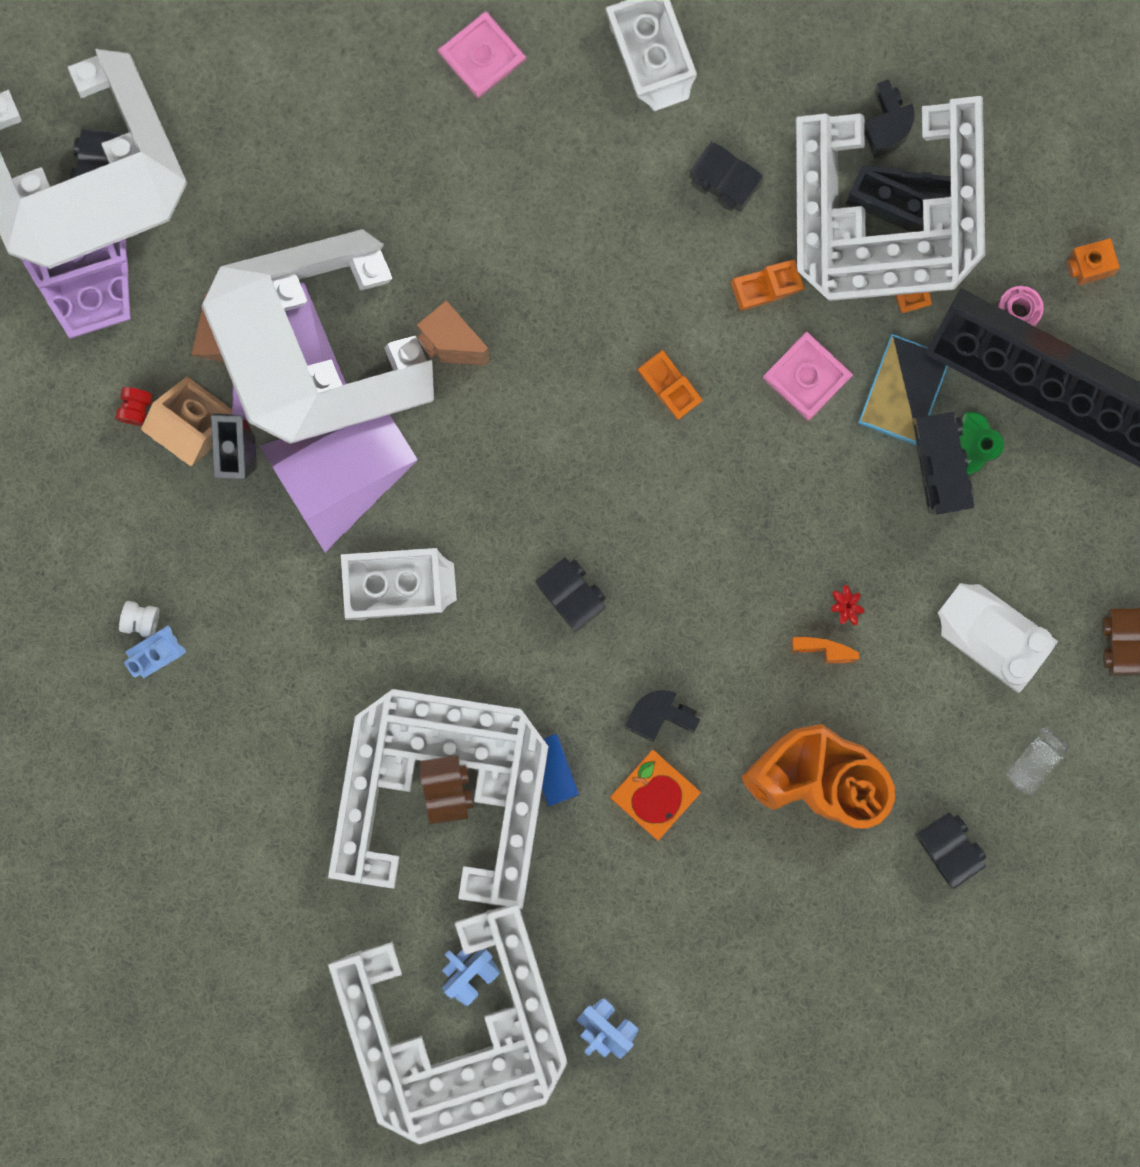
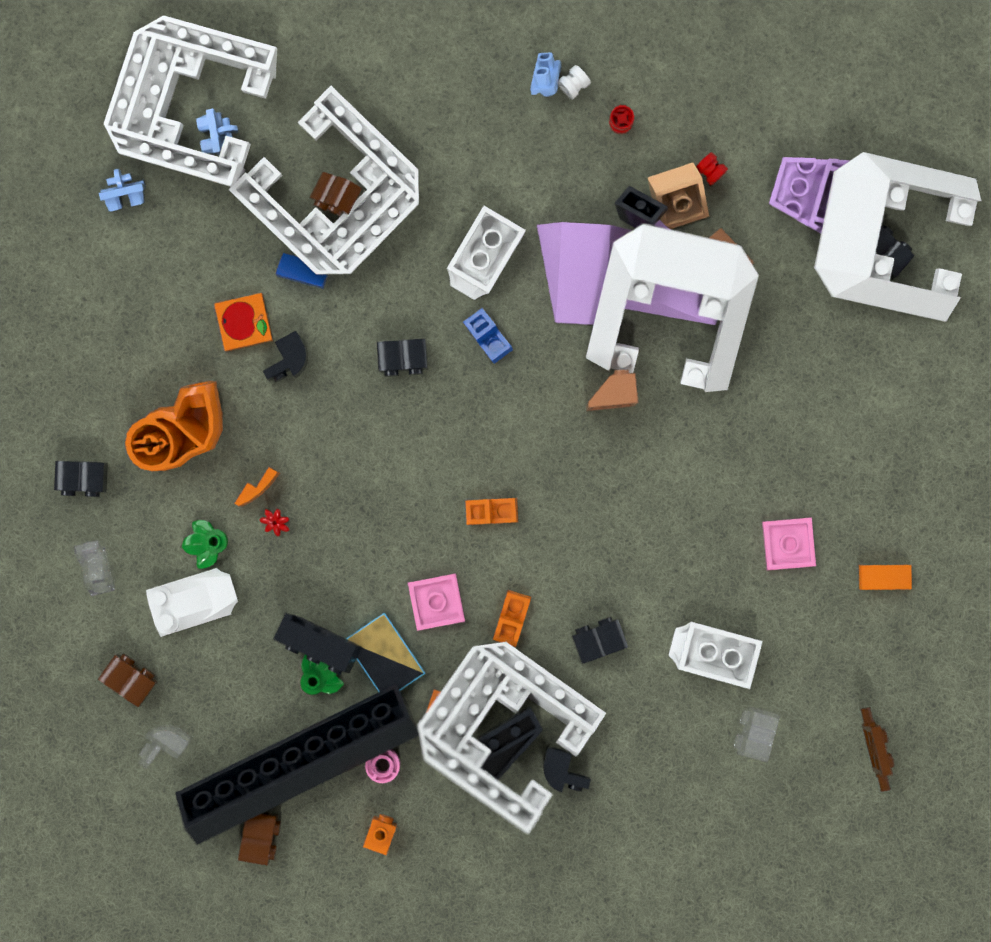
camera: 120 degrees right, 5 degrees up
(143, 534) = (622, 114): none -> red wheel
(483, 520) = (488, 335): none -> slope
(927, 668) = (201, 543): none -> green plate

